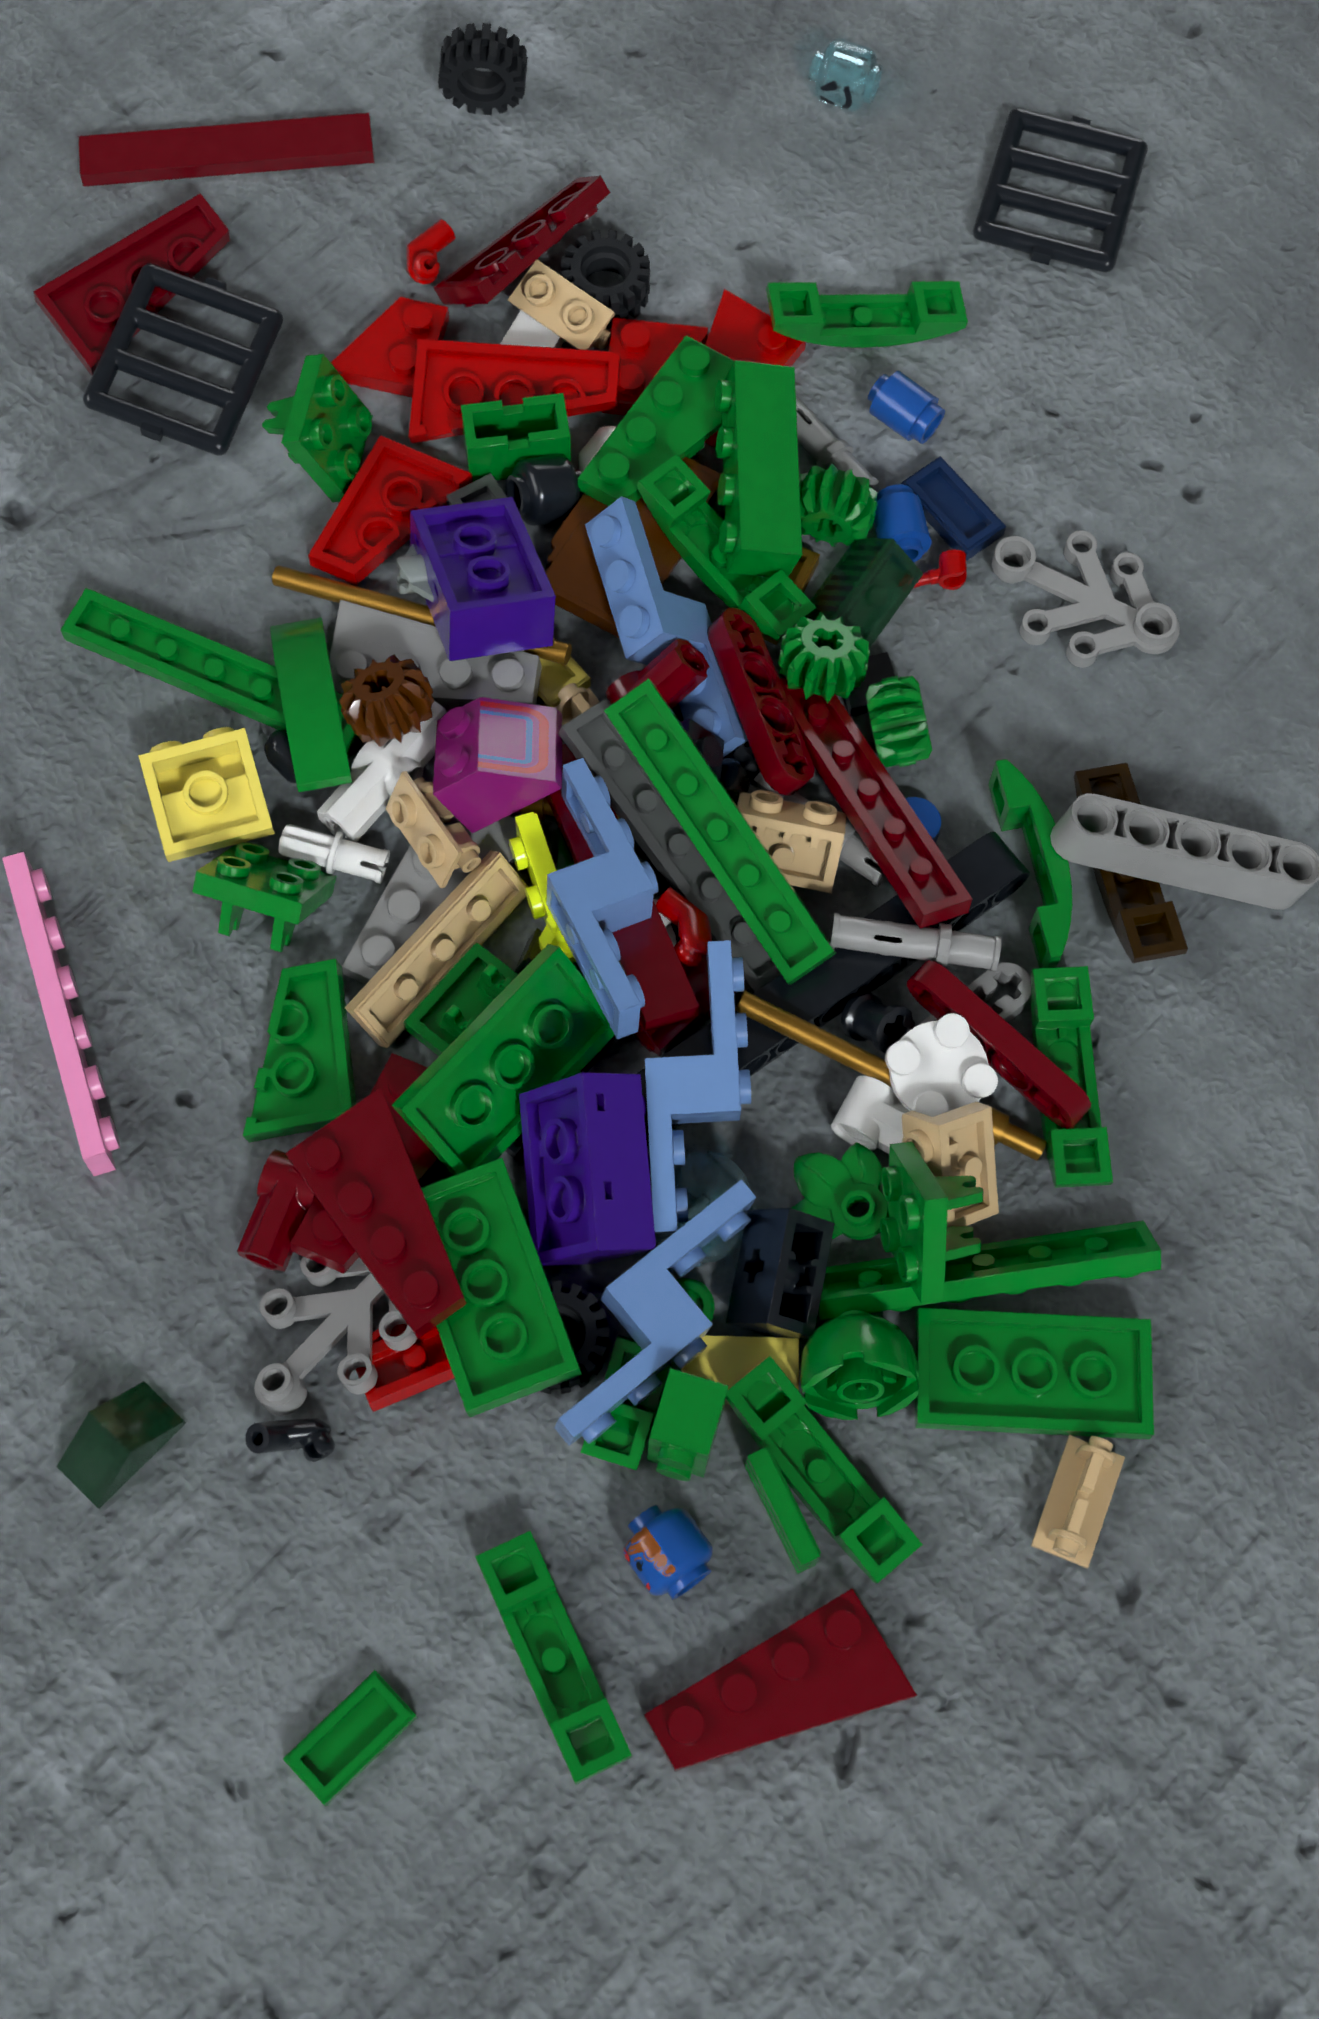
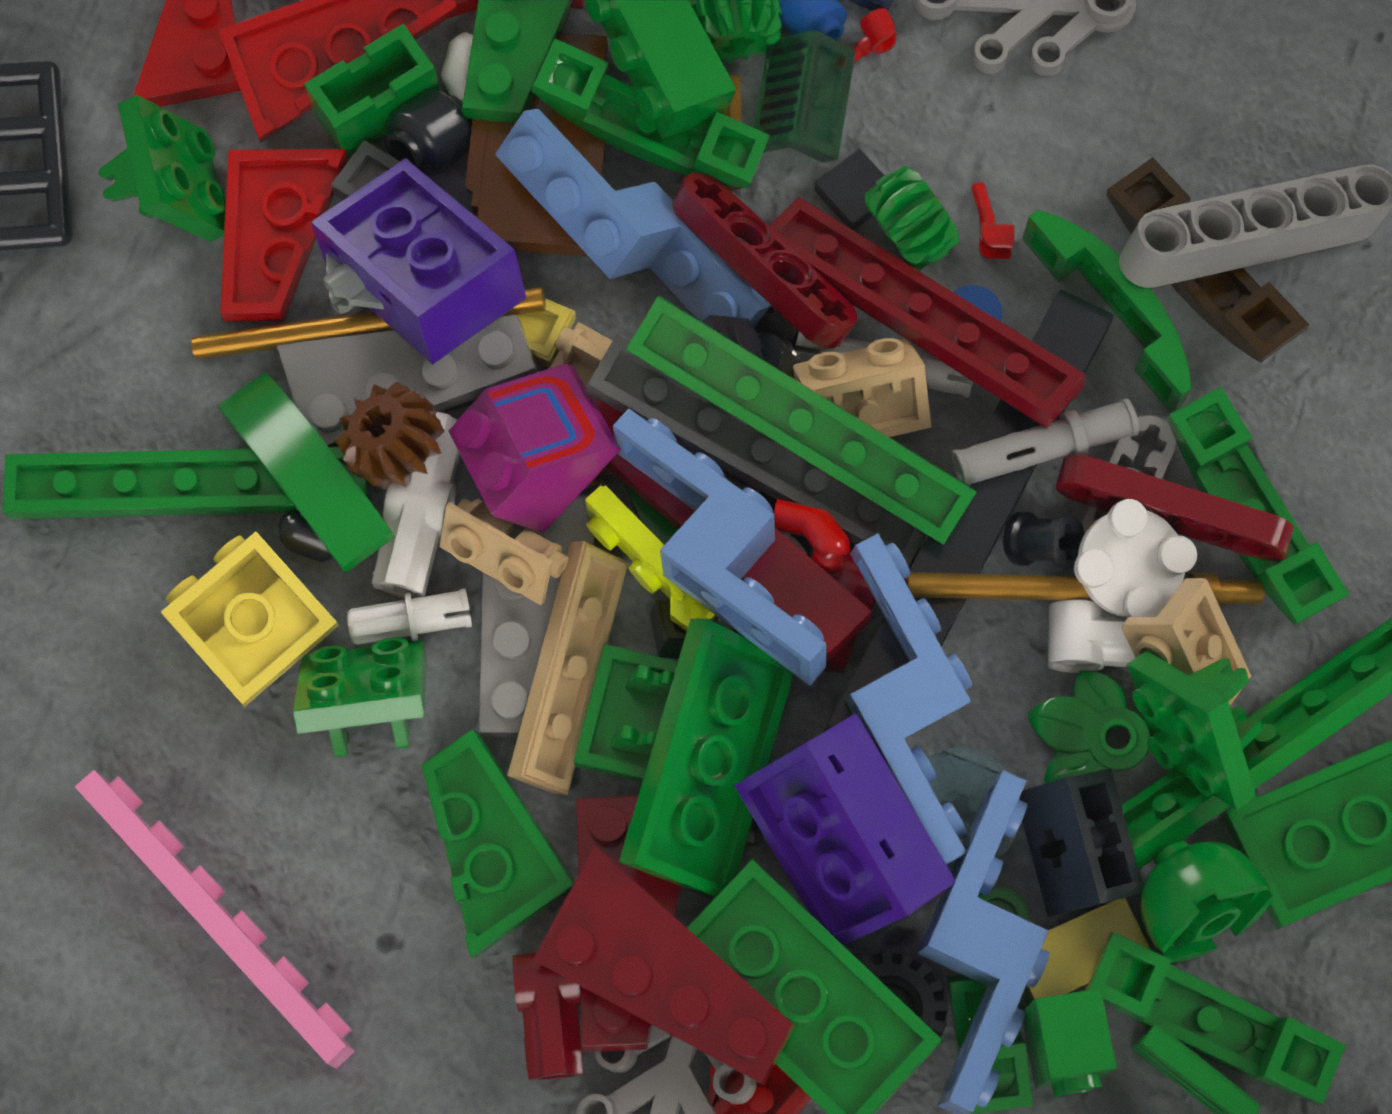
camera: 20 degrees left, 5 degrees up
(673, 672) = (664, 272): dark red piece -> none
(824, 657) = (805, 185): green gear -> none
(964, 771) = (994, 239): none -> red hand

